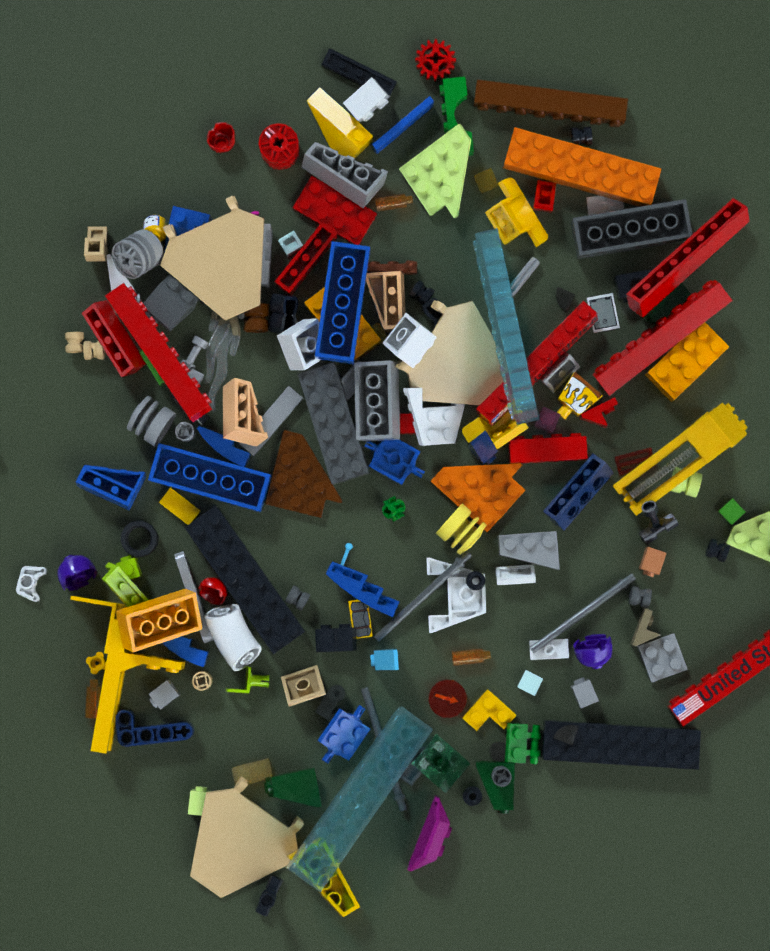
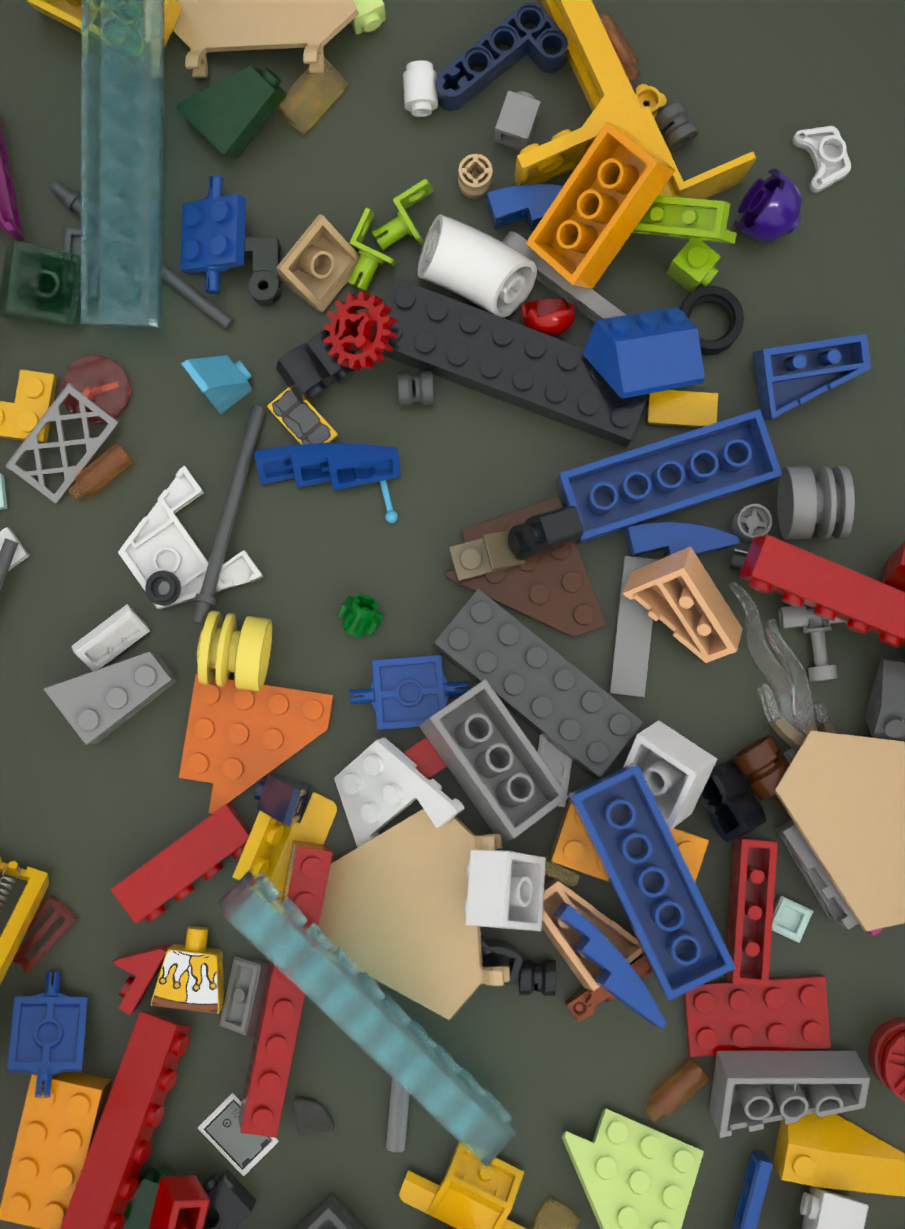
camera: 145 degrees right, 0 degrees up
(91, 641) = (675, 126): none -> dark grey wheel
(182, 539) = (646, 352): none -> blue slope
(199, 741) = (420, 88): none -> white brick
(278, 674) = (369, 258): none -> lime bracket
(285, 487) = (545, 532): none -> black brick
(303, 630) = (360, 331): none -> red gear
(317, 497) = (483, 556): none -> dark tan slope
(385, 270) = (617, 974): none -> blue slope
(484, 666) = (32, 443): none -> light grey window
(548, 420) = (206, 908): clear pink brick -> none
(578, 491) = (93, 829): dark blue brick -> none
(657, 413) = (47, 1034): none -> blue plate

